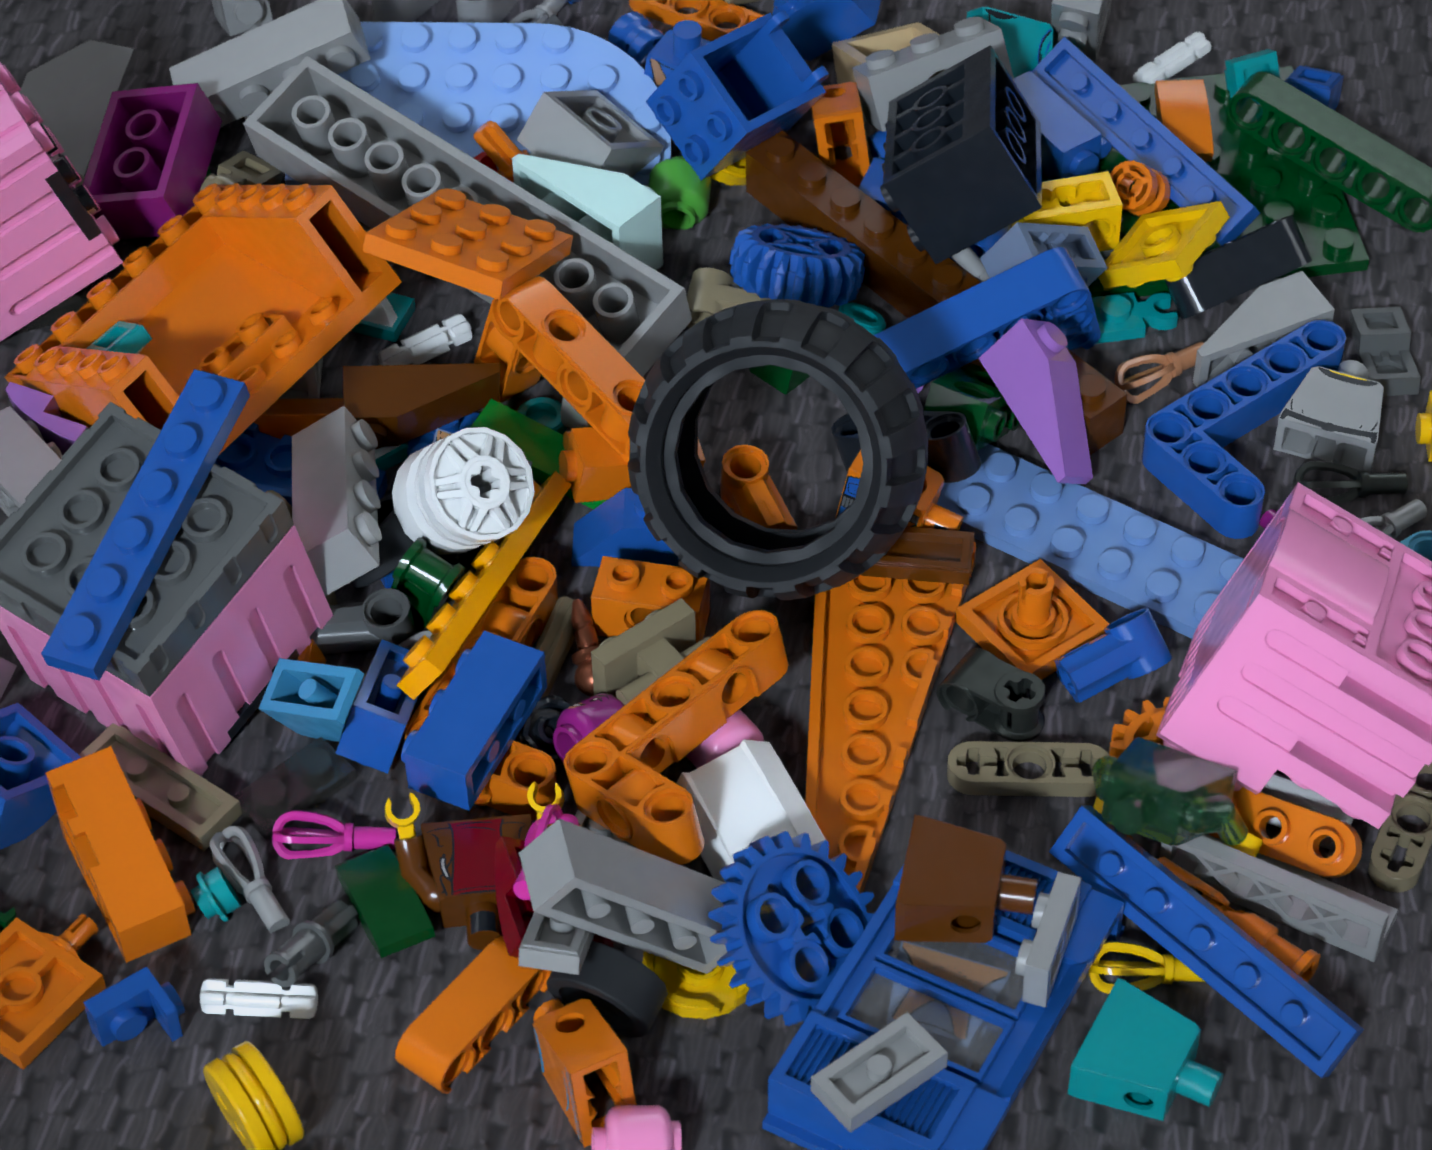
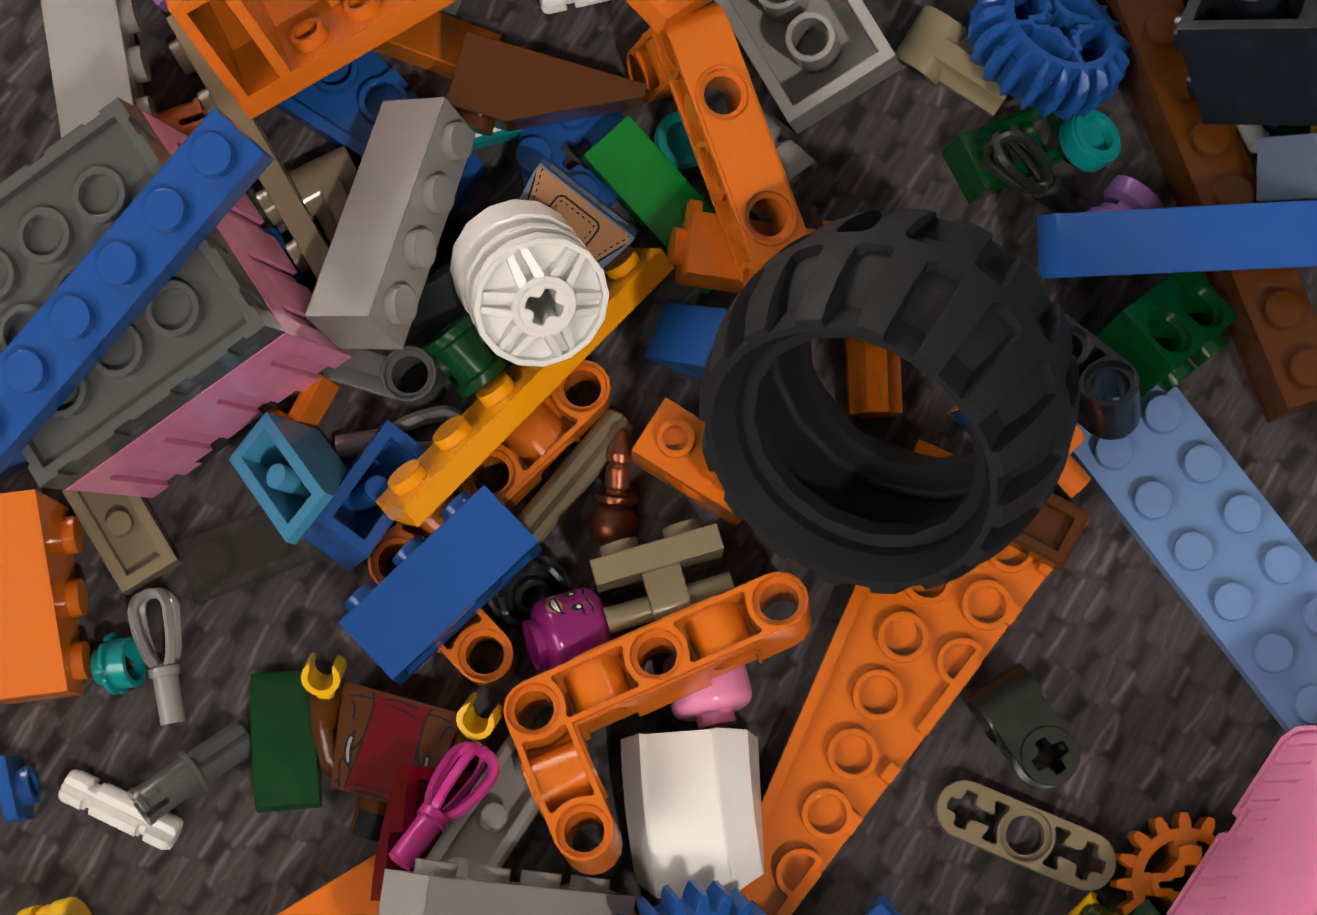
camera: 20 degrees right, 30 degrees up
(343, 837) = (280, 641): dark pink piece -> none
(1030, 619) = (1109, 644): orange plate -> none
(1044, 394) = (1248, 356): medium lavender slope -> none
(1126, 650) = (1198, 729): blue piece -> none

